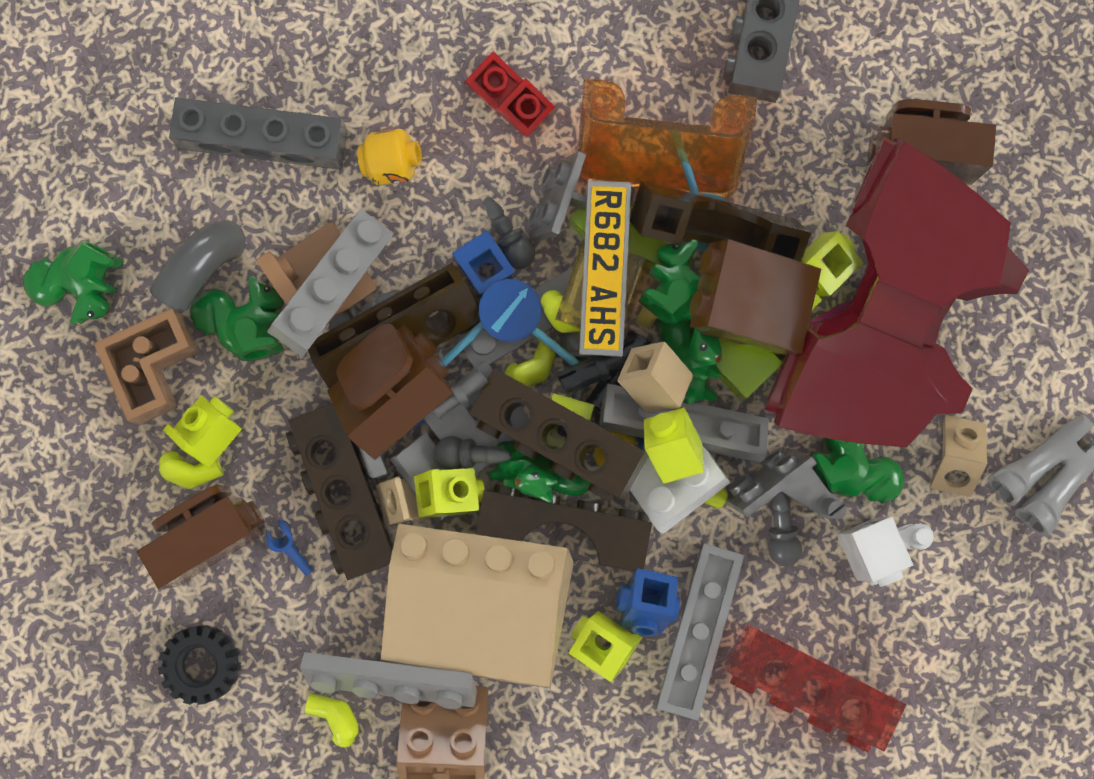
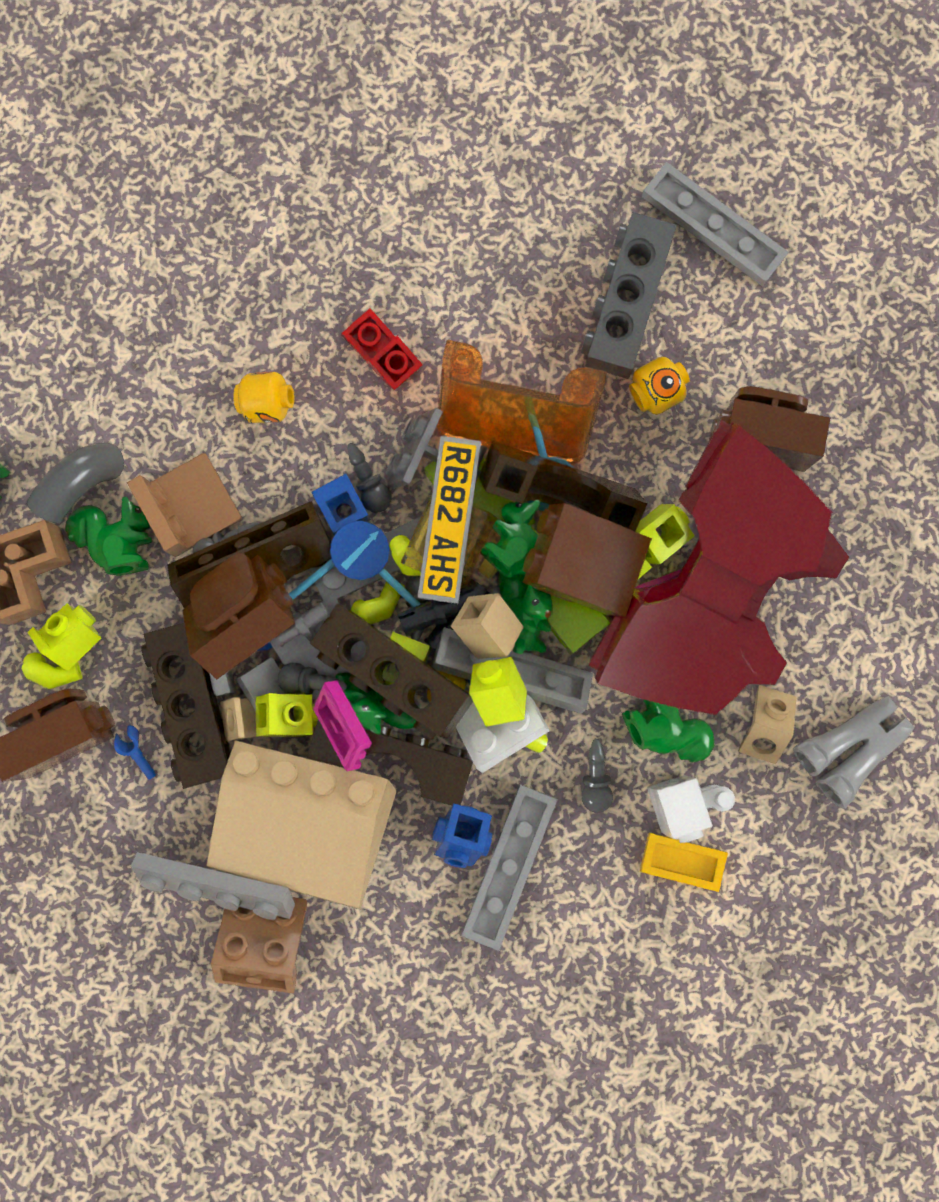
camera: 10 degrees right, 0 degrees up
(174, 664) = (17, 854): black tyre -> none
(258, 133) = (144, 365): dark grey brick -> none
(330, 283) = (194, 510): light grey plate -> none
(338, 715) = (165, 915): neon yellow arm -> none
(512, 496) = (341, 725): none -> dark pink tile
(603, 660) = (414, 884): neon yellow brick -> none
(791, 474) = (603, 726): flat silver plate -> none
(810, 106) = (659, 385): none -> yellow head
(877, 713) = (669, 957): clear red brick -> none
(883, 609) = (683, 862): none -> yellow tile

